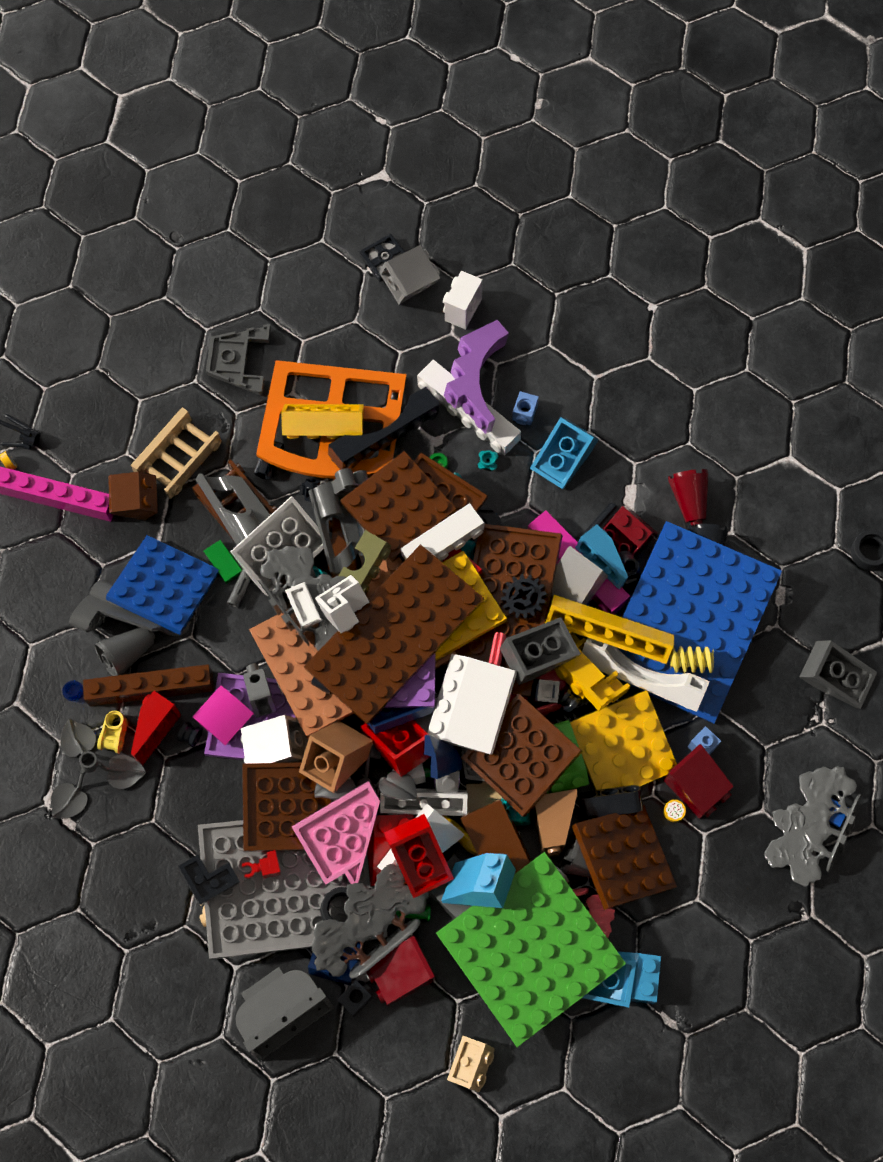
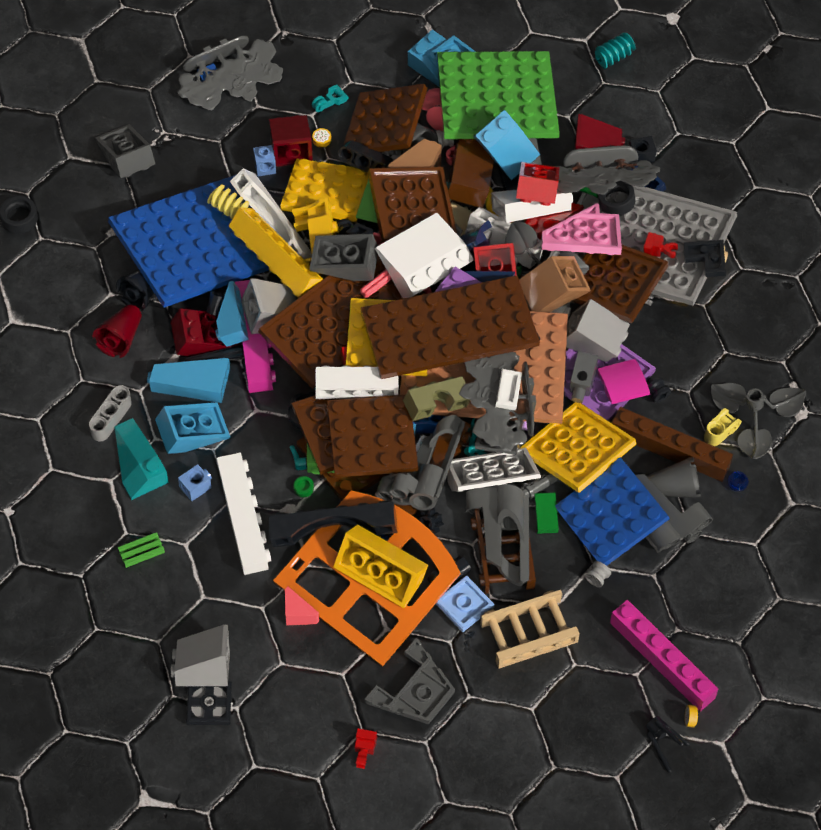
camera: 150 degrees left, 10 degrees down
(133, 495) = (592, 604): reddish brown slope -> none
(147, 528) = (597, 574): none -> light grey wheel
(154, 722) = (683, 405): red slope -> none
(220, 625) = (579, 446): none -> yellow plate
(240, 444) = (464, 603): none -> light blue plate
(248, 295) = (365, 745): none -> red piece
(275, 1007) = (701, 166): dark grey container -> none
(341, 603) = (483, 362): white brick -> none
(368, 359) = (298, 610): none -> coral slope
(458, 1112) = (614, 50): none -> teal piece
(462, 299) = (173, 604): white brick -> none
(465, 388) = (221, 531): medium lavender arch -> none
(471, 1064) = (587, 73): tan bracket -> none
(492, 456) = (260, 457): teal plate -> none
(532, 593) = (334, 297): black gear -> none
(533, 324) = (140, 546): none -> bright green tile
(584, 401) = (138, 461): none -> teal wedge
(594, 493) = (191, 379): none -> dark azure slope
(639, 431) = (111, 404): none -> light grey beam
(702, 846) = (321, 103): none -> teal piece

